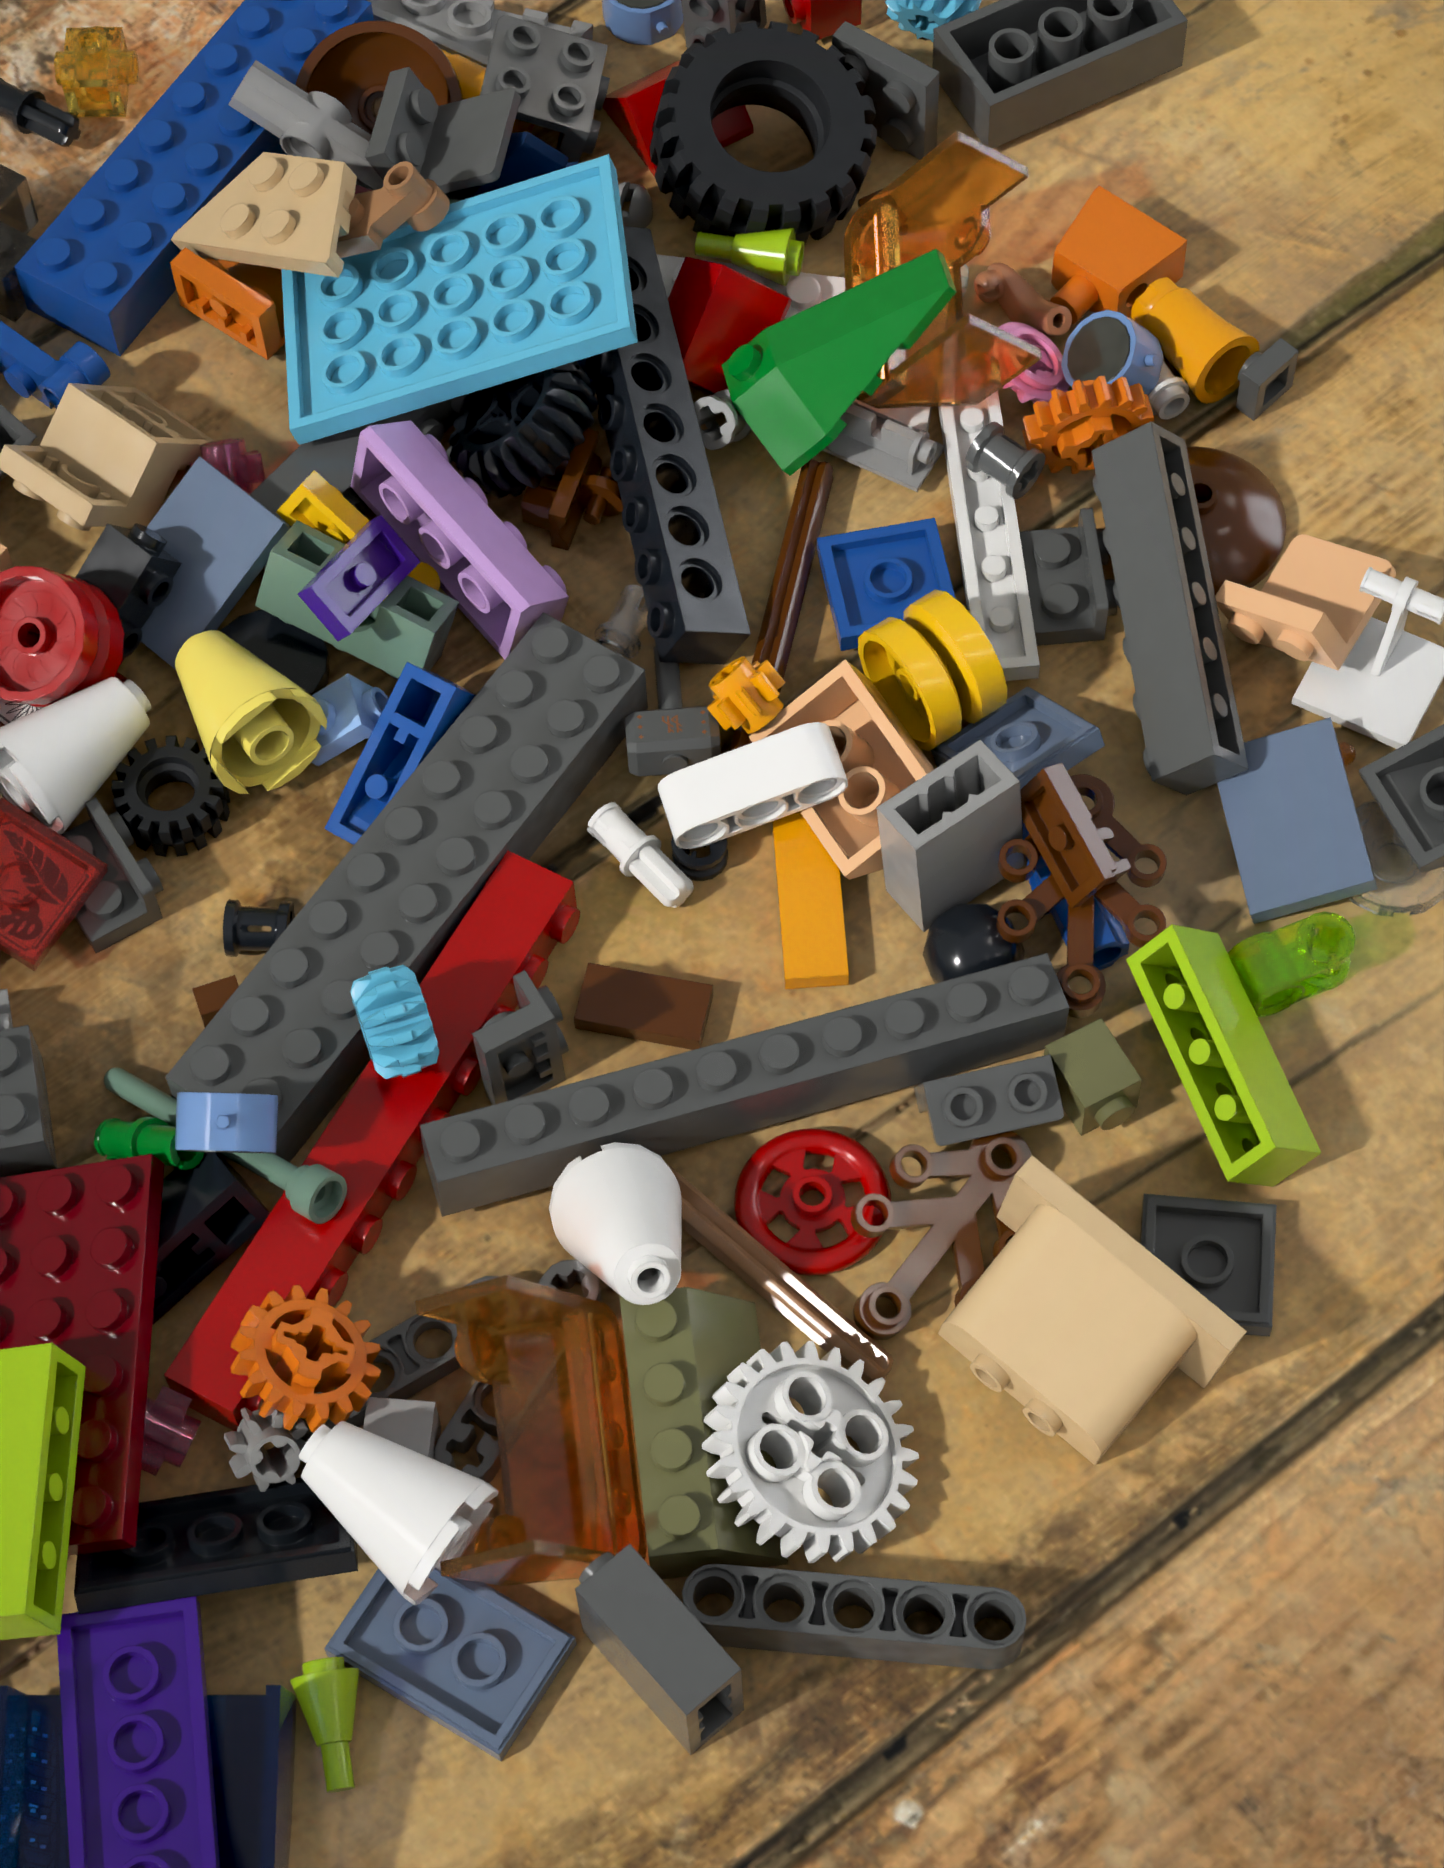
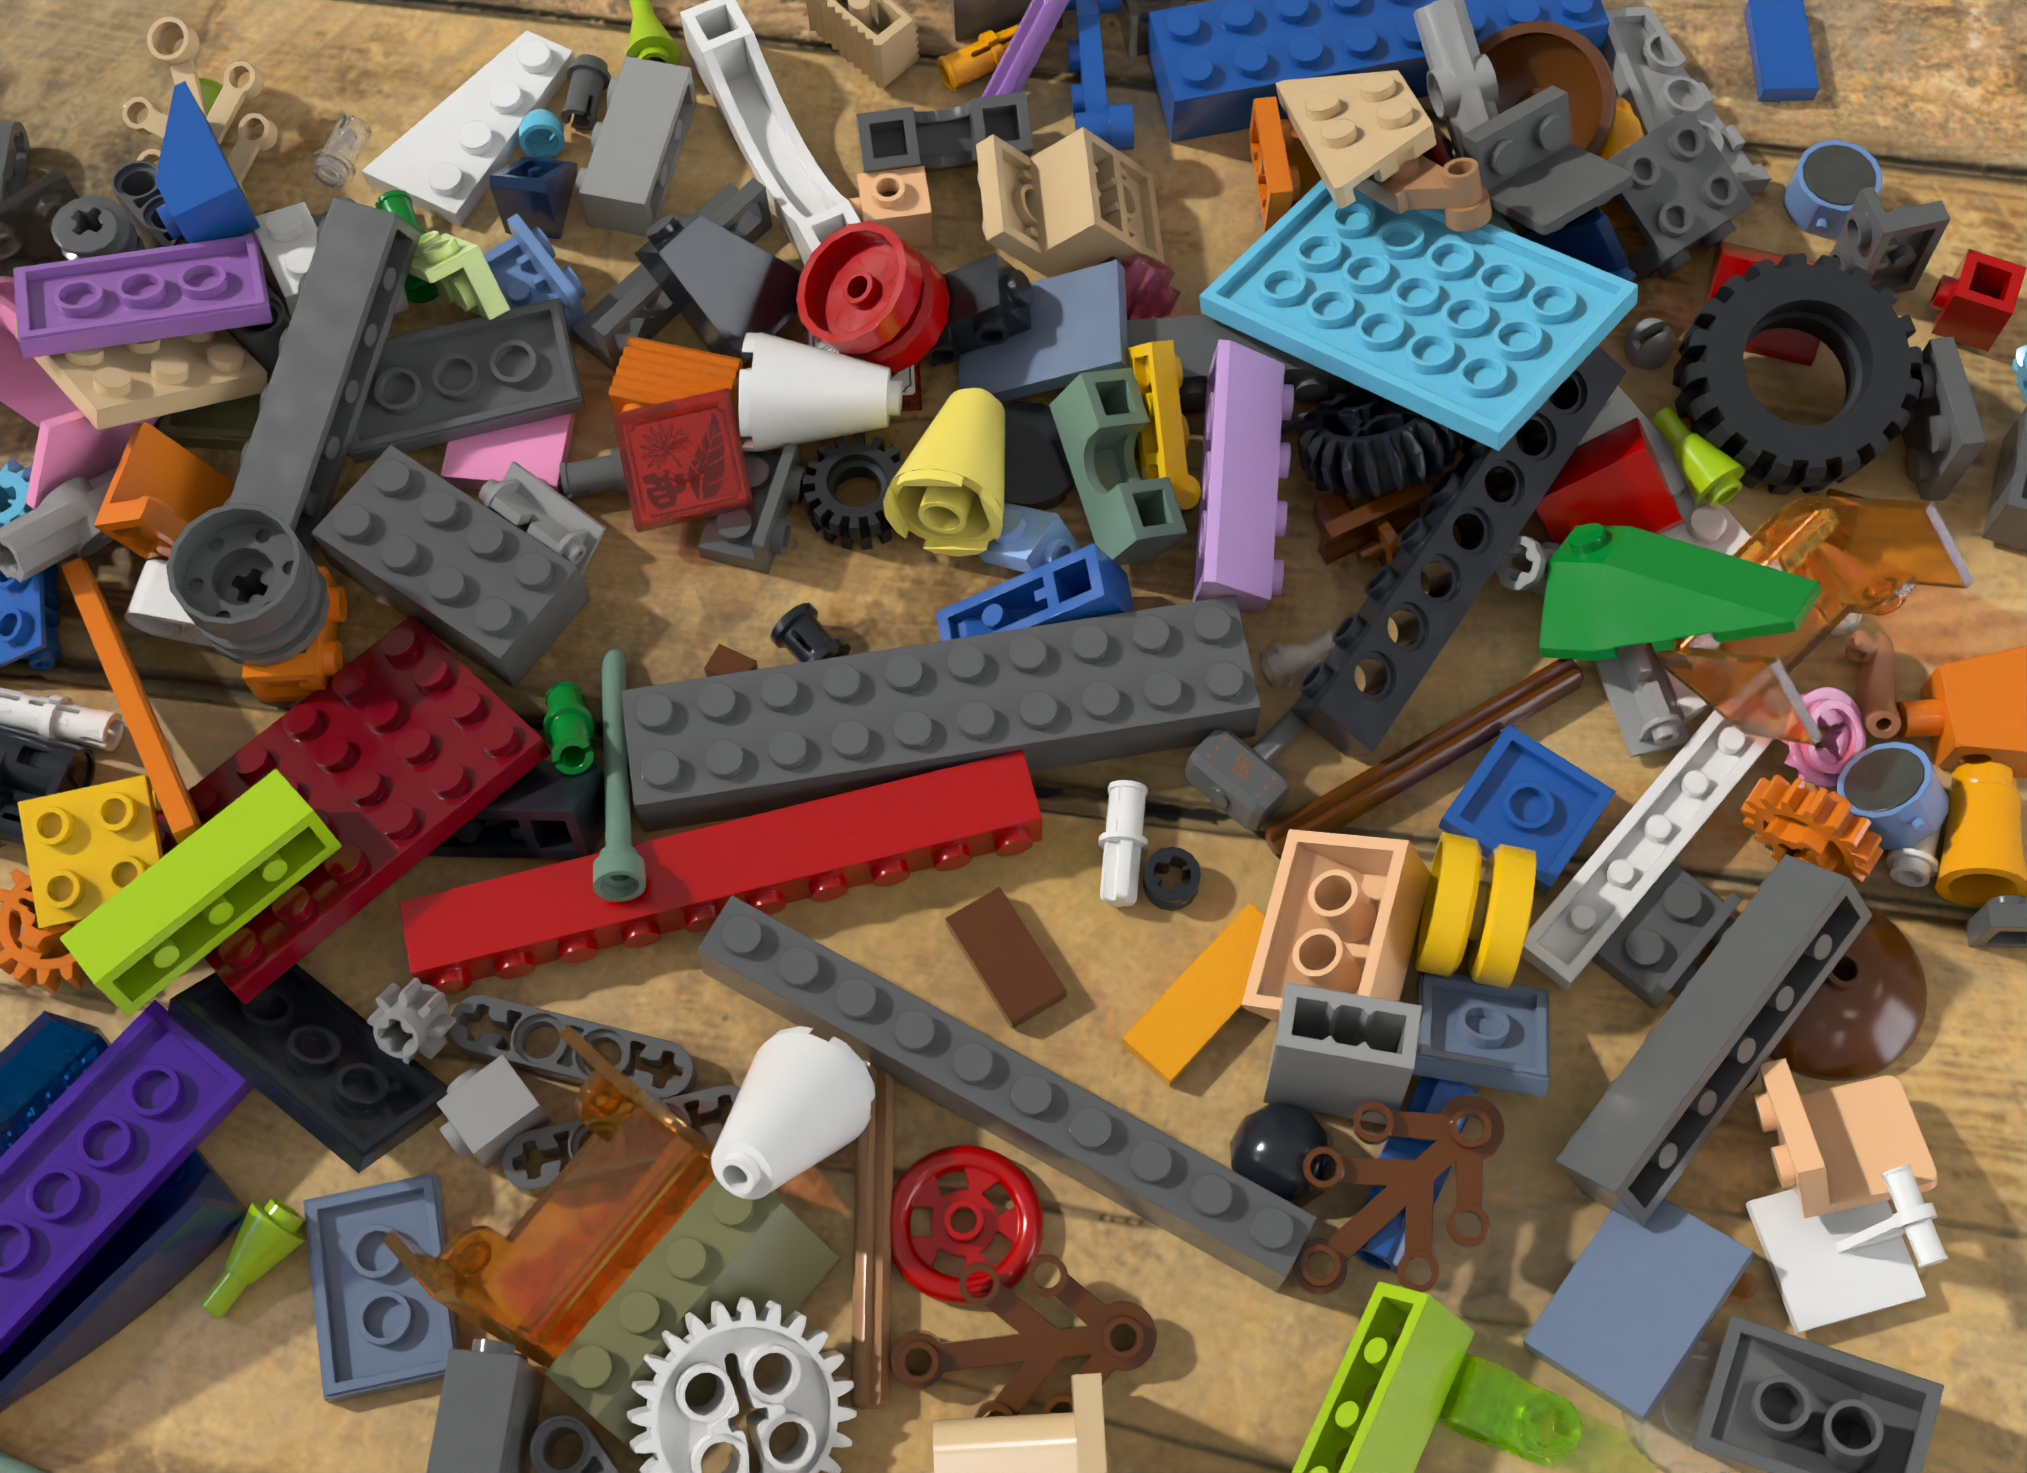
camera: 45 degrees right, 5 degrees up
(167, 1430) = (366, 939): clear pink gear -> none
(226, 1122) = (600, 765): medium blue piece -> none
(305, 1358) = (502, 1012): orange gear -> none
(359, 578) = (1122, 449): dark purple plate -> none
(395, 1021) = (790, 802): medium azure gear -> none
(396, 1503) = (422, 1153): white cone -> none
(522, 1048) = (871, 910): dark grey bracket -> none
(746, 695) = (1314, 796): light orange gear -> none
(752, 785) = (1242, 871): white beam -> none
(991, 1100) = (1160, 1283): dark grey bracket -> none
(1005, 460) = (1713, 797): dark grey bush -> none
(1067, 836) = (1423, 1134): reddish brown plate -> none
(1094, 1078) = (1258, 1346): olive brick -> none

